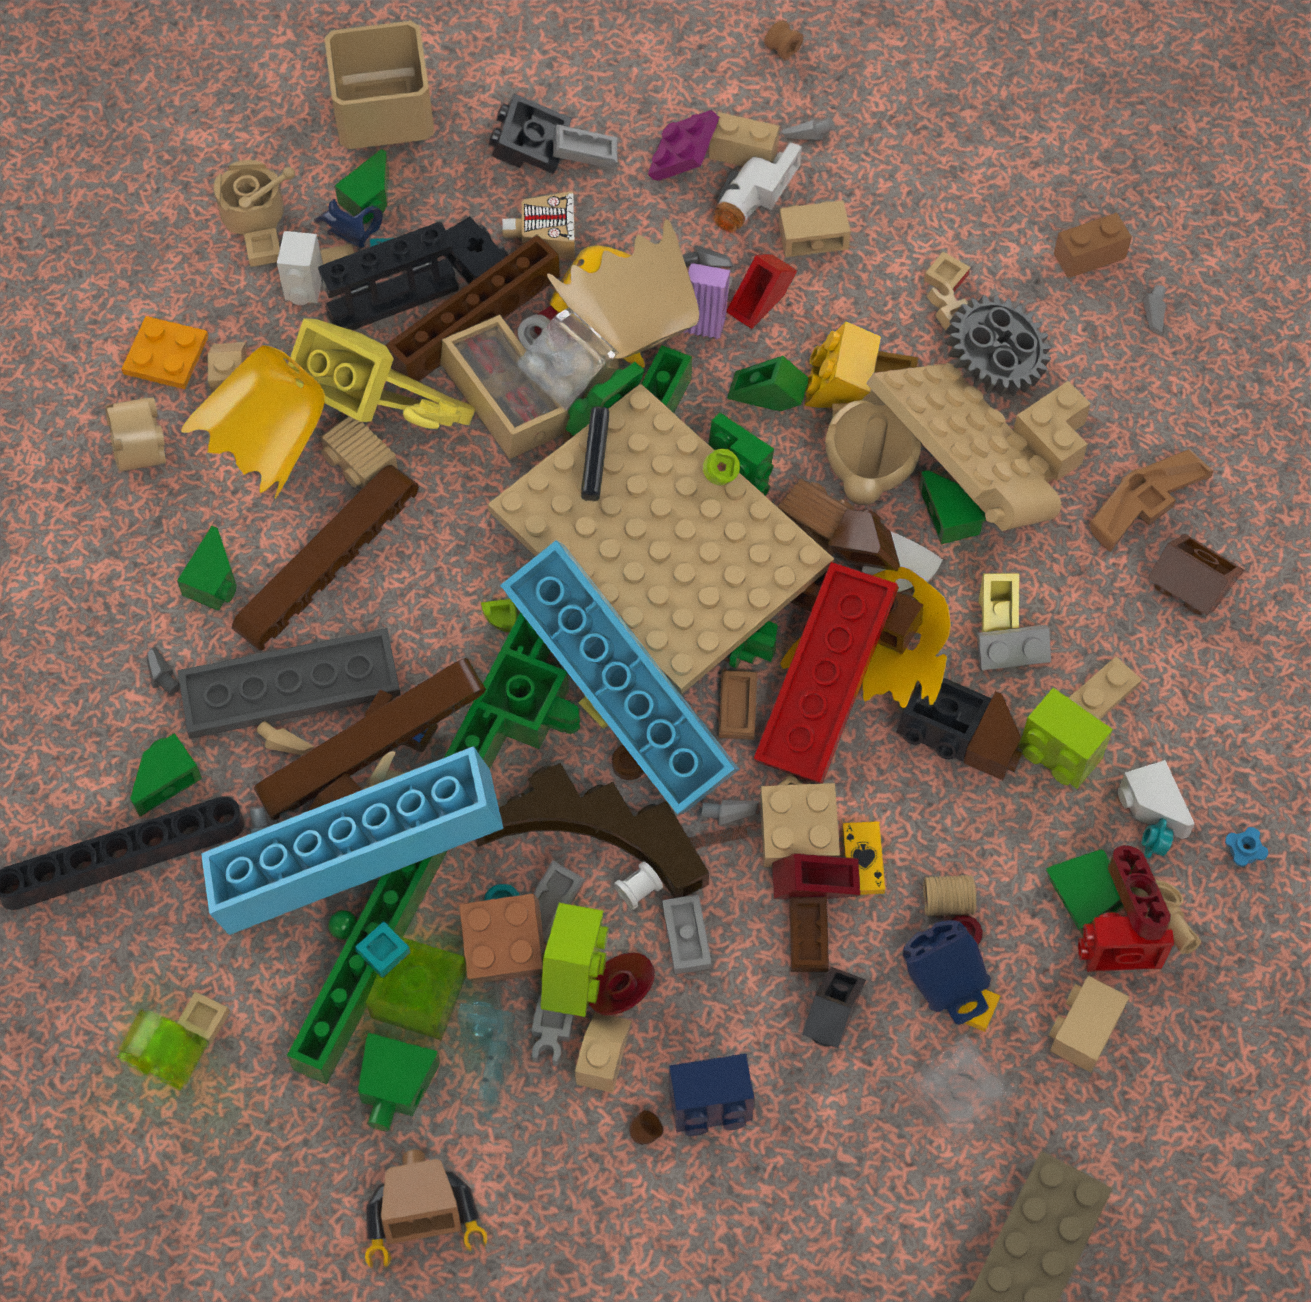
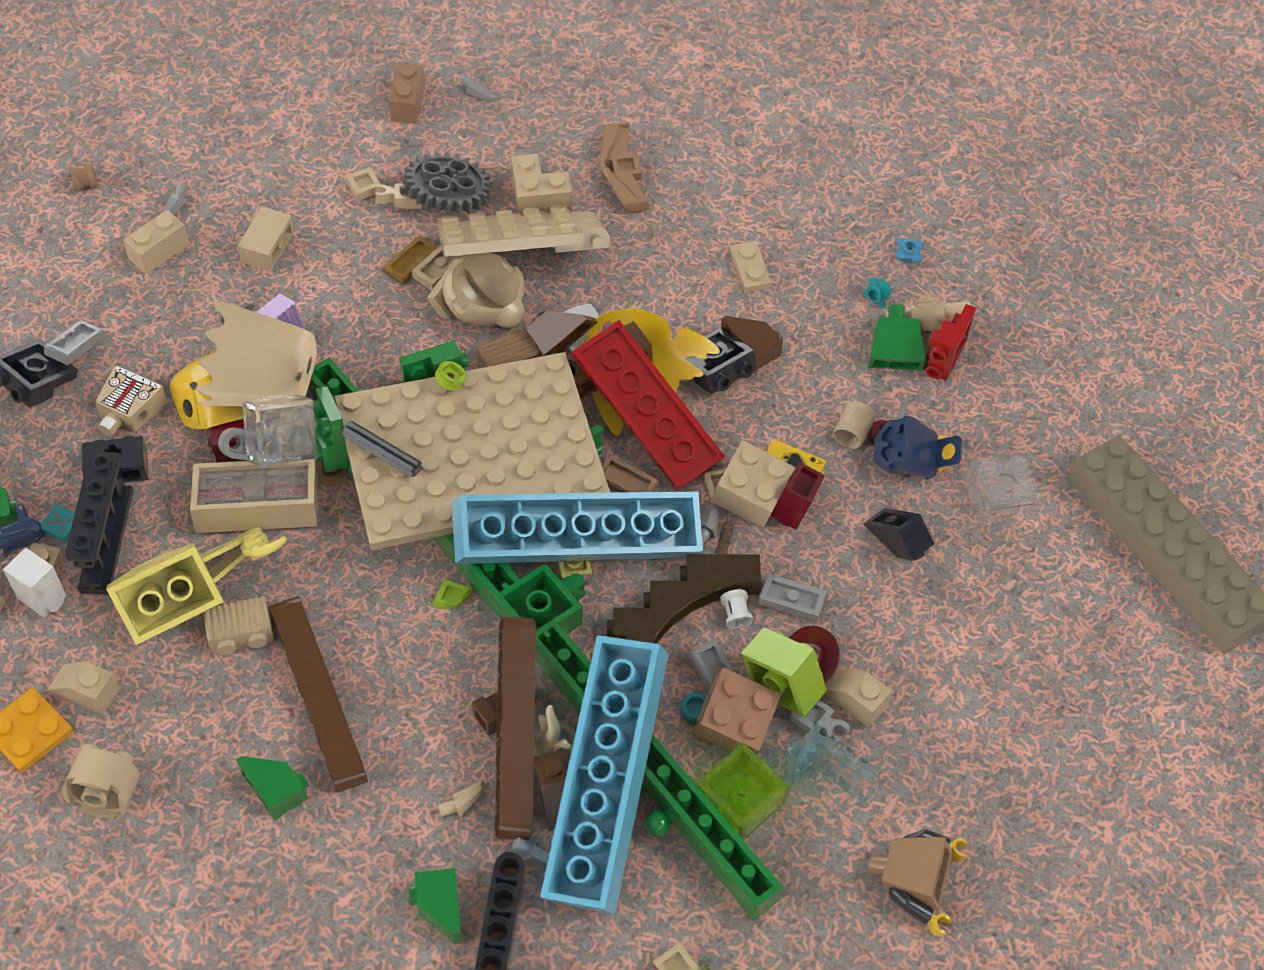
camera: 65 degrees left, 5 degrees down
(161, 672) = (337, 867): dark grey bar -> none
(261, 415) = (163, 673): yellow piece -> none
(287, 683) = (413, 774): dark grey plate -> none
(382, 949) = (711, 792): teal plate -> none
(394, 1078) = (804, 846): green torso -> none
(491, 294) = (168, 474): reddish brown brick -> none
(625, 765) = (630, 571): reddish brown tile -> none
(645, 1128) = (929, 696): reddish brown hinge -> none
(683, 145) = (130, 278): magenta plate -> none
(711, 1094) = (935, 635): dark blue brick -> none
(755, 185) = (200, 256): white plate -> none
(761, 289) = (292, 285): red slope -> none
(769, 385) = (378, 330): green slope -> none
(808, 934) = (834, 523): reddish brown plate -> none
(842, 367) = (401, 278): yellow slope -> none
(950, 508) = (555, 275): green slope -> none
(999, 601) = (654, 283): light yellow slope -> none
(1014, 647) = (688, 296): light grey plate -> none
(1064, 738) = (783, 296): lime brick -> none
(1088, 1024) = (992, 393): tan brick -> none
(1137, 906) = (947, 307): dark red beam -> none
(1155, 795) = (850, 276): white slope -> none
(1194, 574) = (700, 173): reddish brown slope -> none

